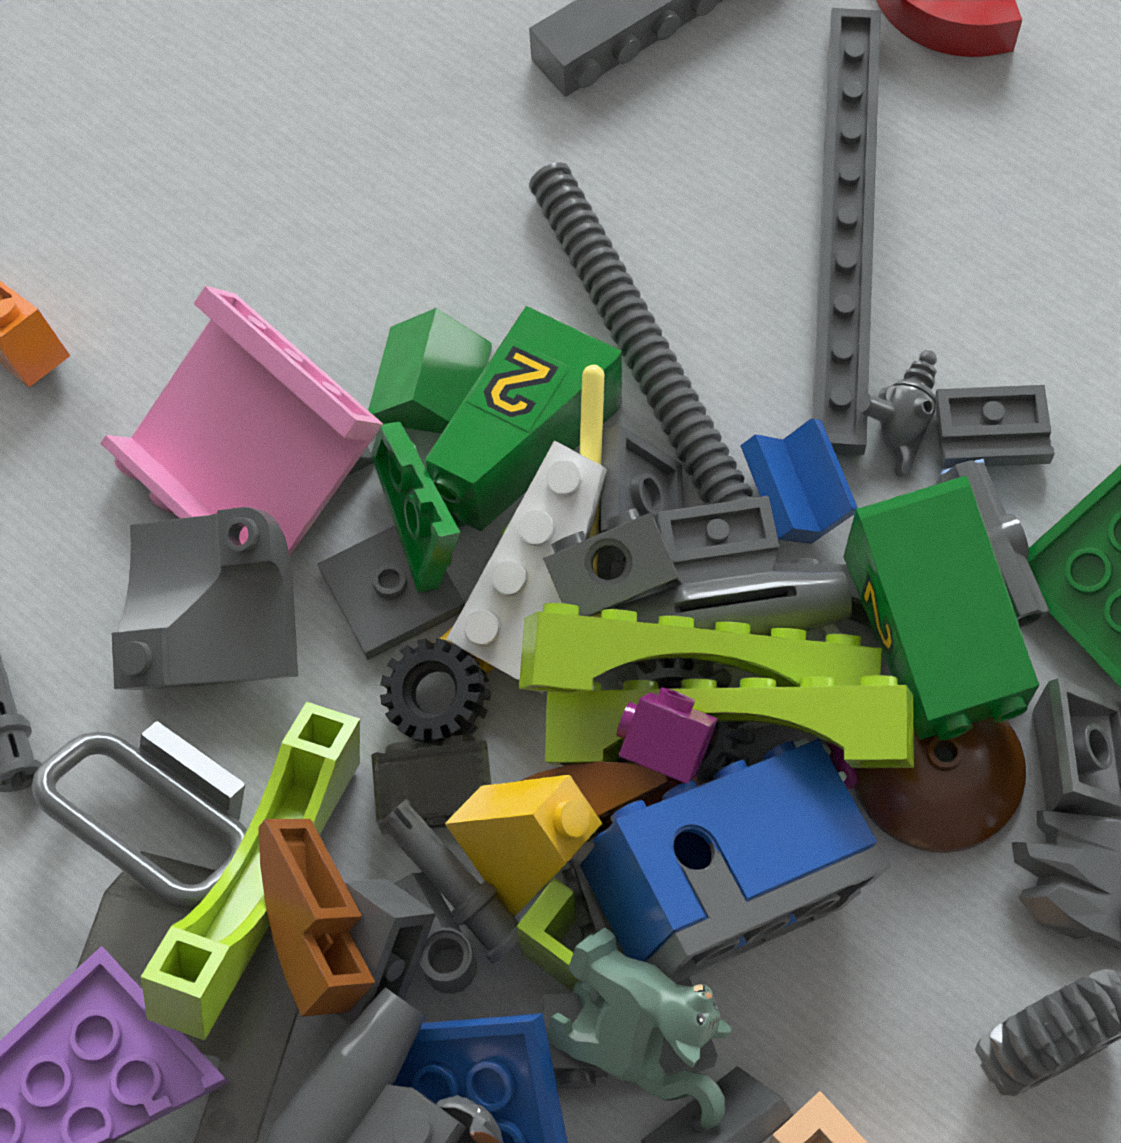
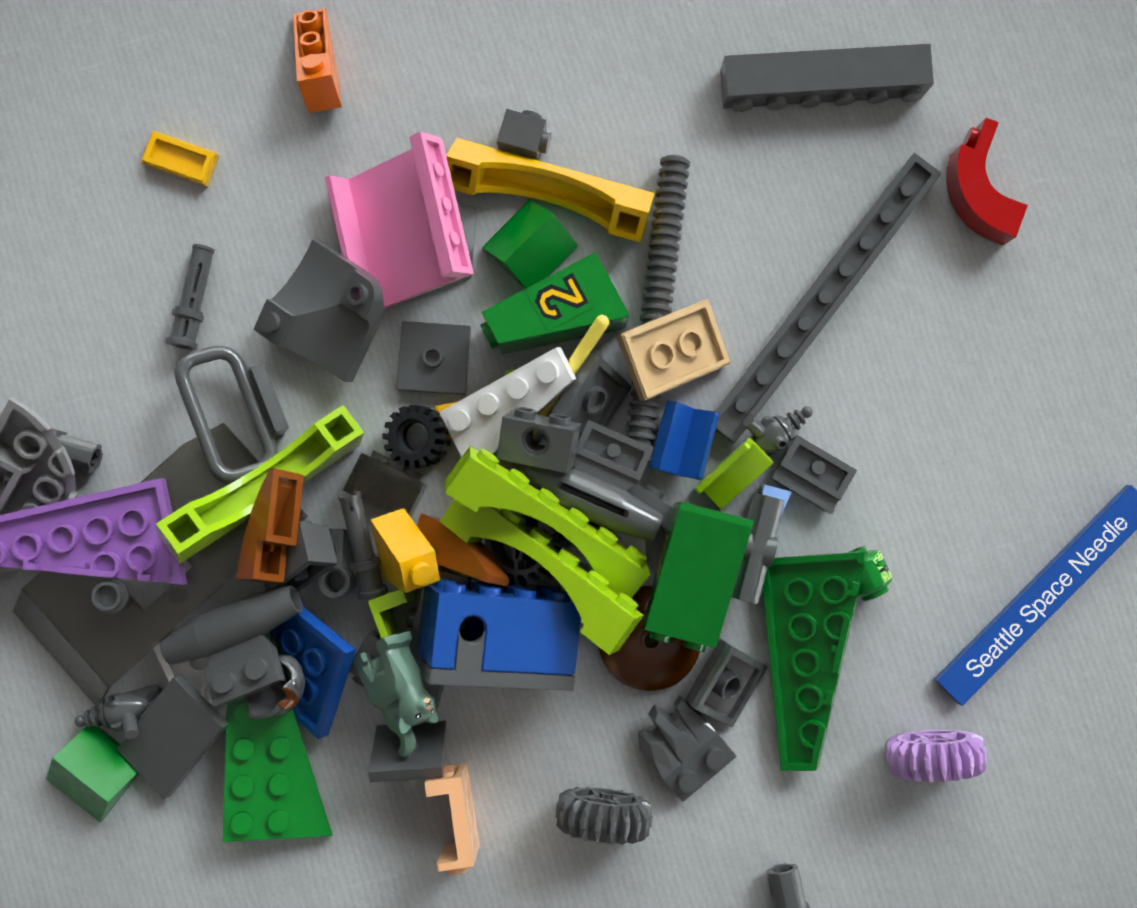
camera: 30 degrees right, 20 degrees up
(336, 255) = (524, 134): none -> dark grey brick
(416, 507) = (467, 325): green wing -> none
(478, 271) = (490, 170): none -> yellow arch
(666, 734) = (499, 558): magenta brick -> none
(704, 379) = (673, 349): none -> tan tile
(896, 462) = (734, 473): none -> lime panel

